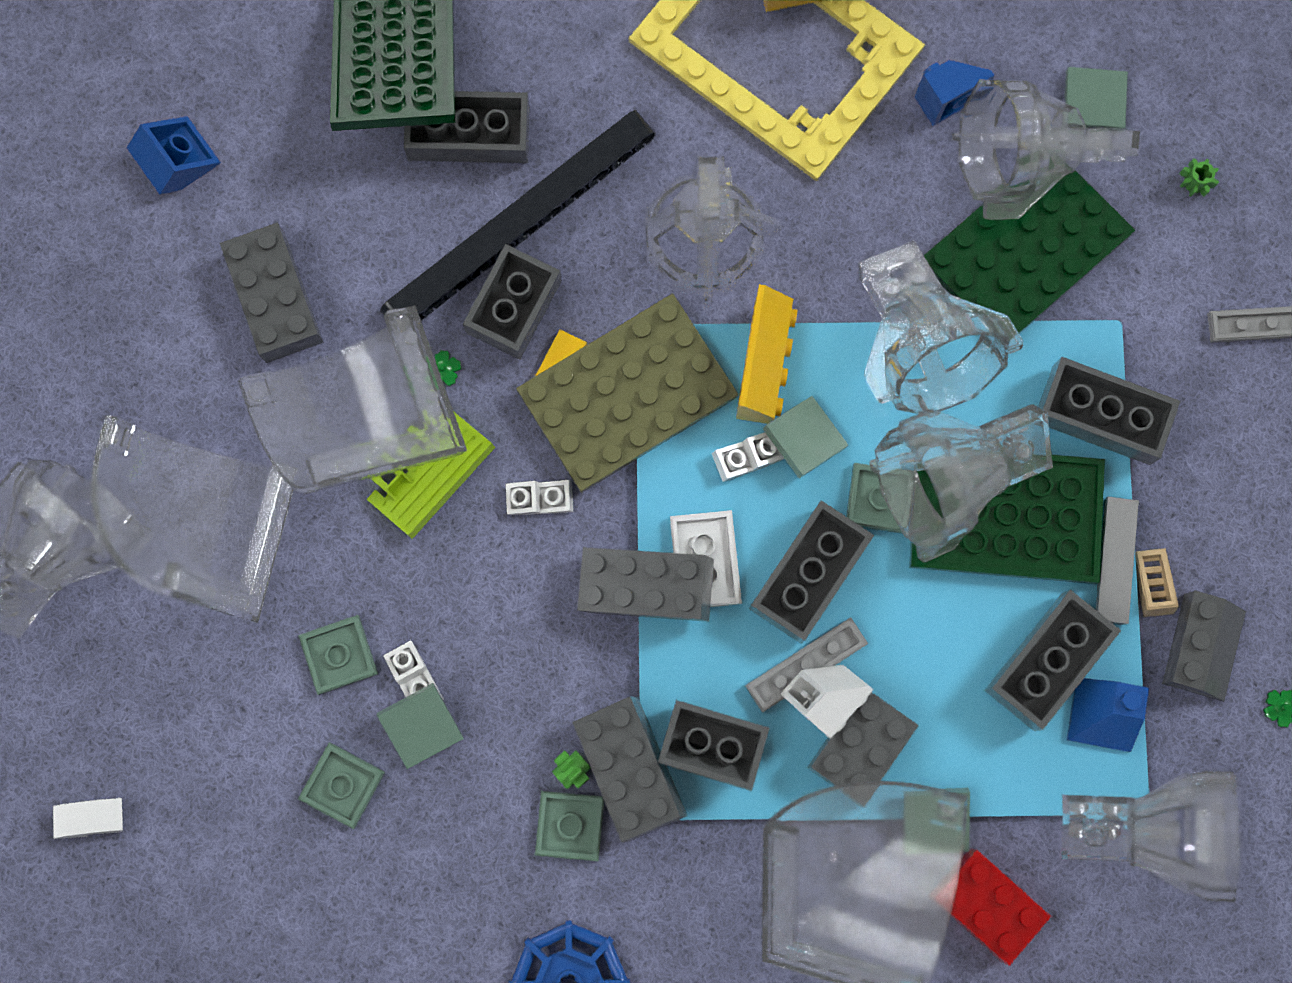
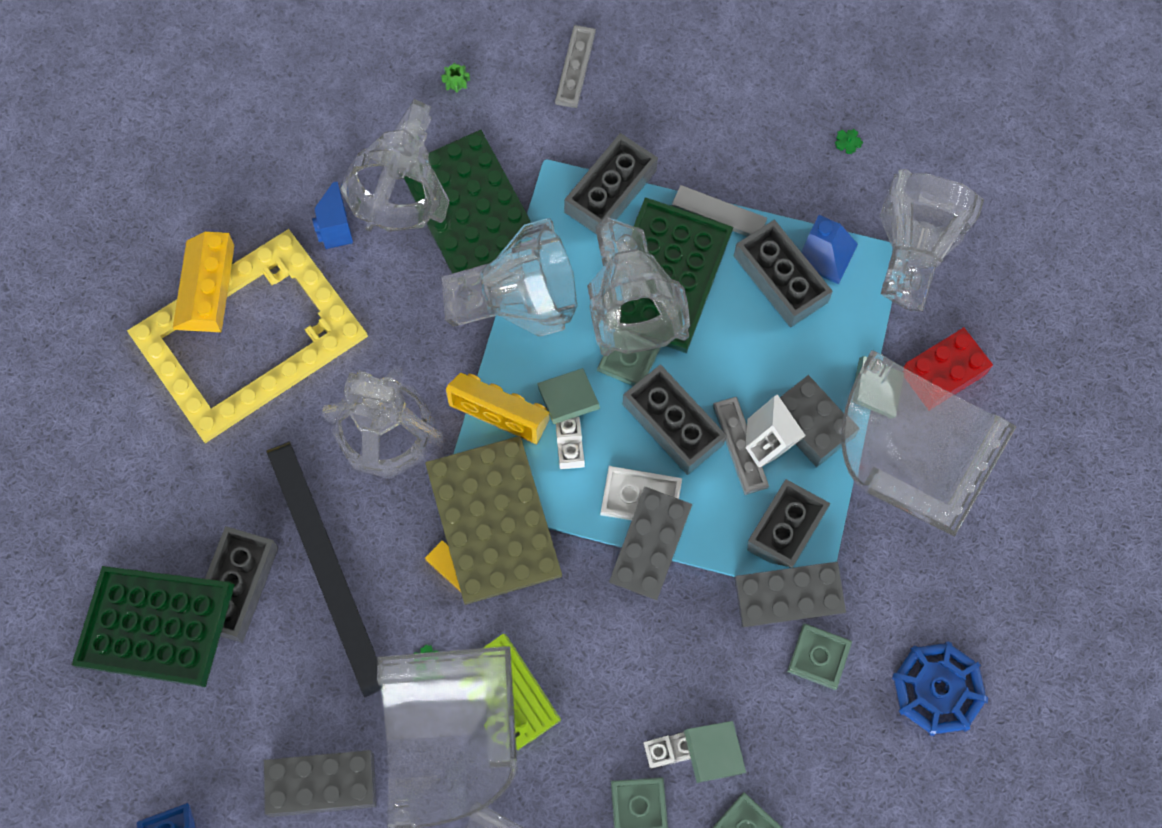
camera: 75 degrees left, 10 degrees down
(512, 301) = (392, 586): dark grey brick -> none
(539, 498) = (555, 611): white slope -> none
(571, 769) = (777, 641): bright green gear -> none
(1098, 95) = (369, 124): sand green tile -> none
(1148, 607) = (750, 187): tan slope -> none
(1204, 645) = (793, 177): dark grey slope -> none

